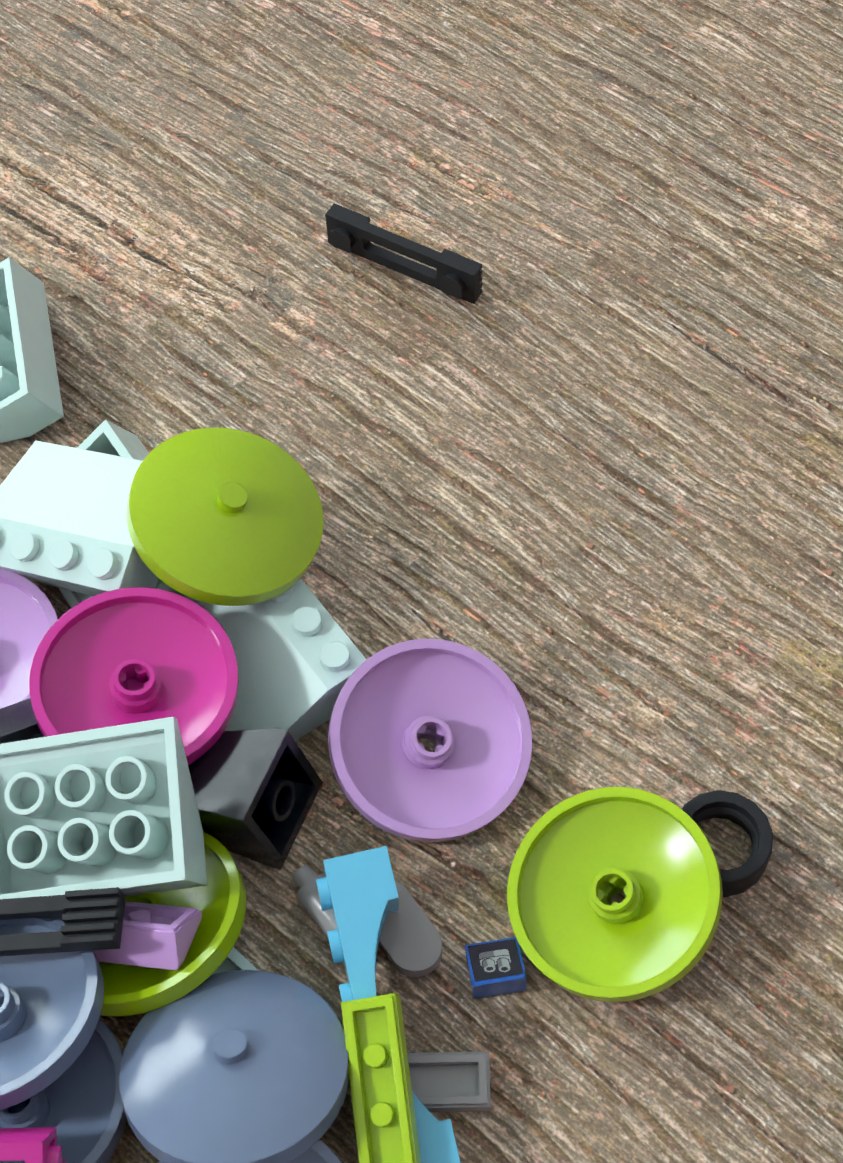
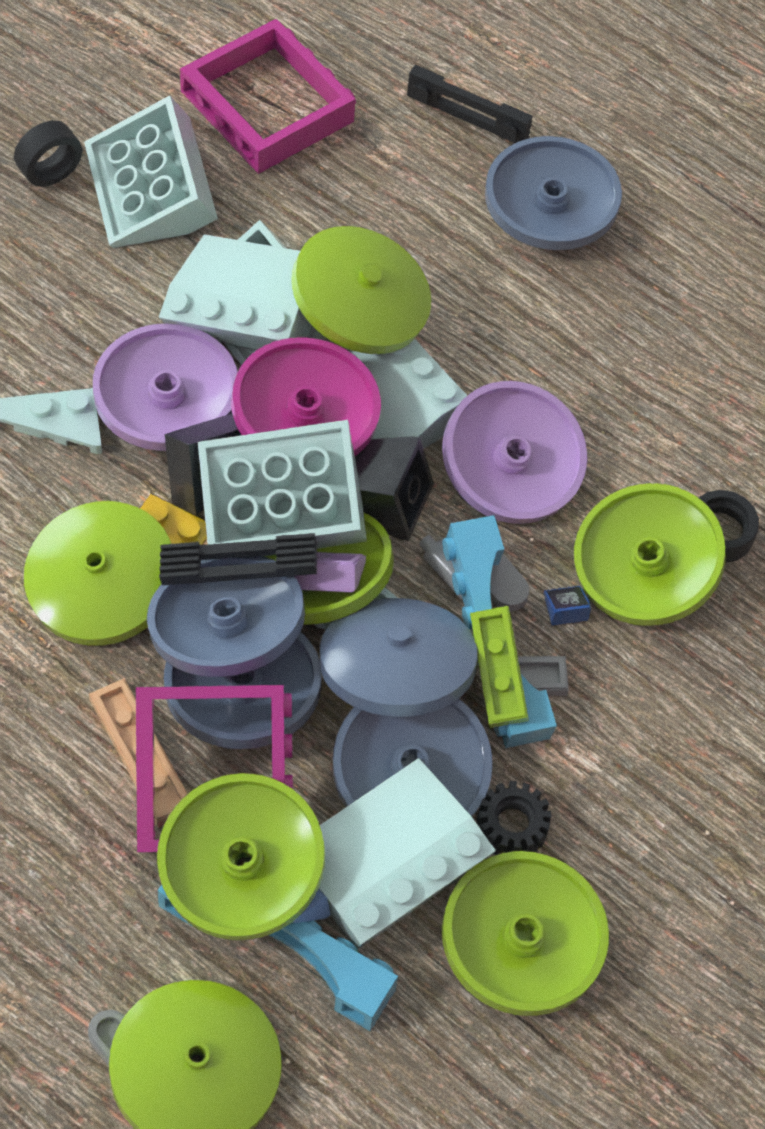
camera: 10 degrees left, 0 degrees up
(177, 302) = (267, 152): none -> dark pink window
(504, 367) = (553, 193): none -> sand blue dish

